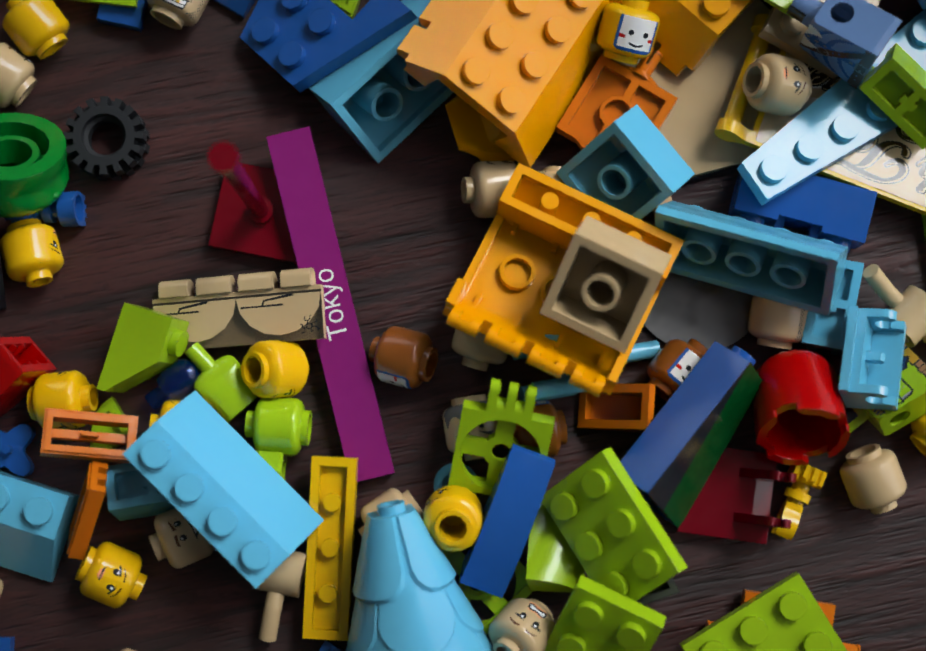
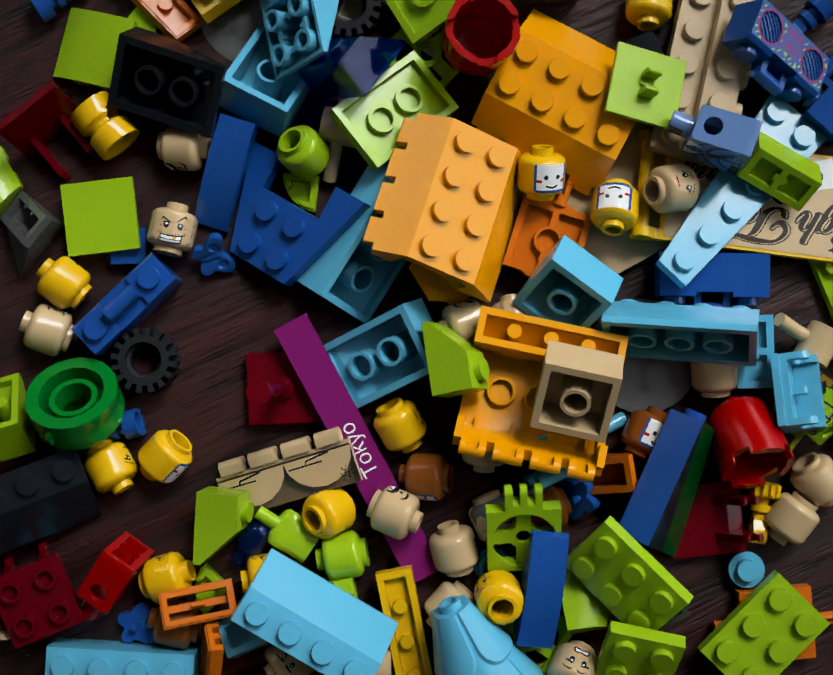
camera: 15 degrees left, 5 degrees up
(50, 470) = (178, 637): none -> dark orange head
(99, 255) = (165, 456): none -> yellow head
(103, 67) = (127, 304): none -> blue piece
(218, 38) = (212, 256): none -> blue piece
(354, 385) = (395, 512): none -> tan head
(387, 288) = (399, 425): none -> yellow head
(396, 199) = (382, 353): none -> medium azure slope
(414, 451) = (454, 549): none -> tan head
(467, 223) = (453, 362): none -> lime slope
(581, 428) = (579, 497): none -> blue piece
(705, 91) = (615, 206): none -> yellow head
(761, 566) = (746, 569): none -> medium azure plate
(831, 516) = (791, 518): none -> tan head

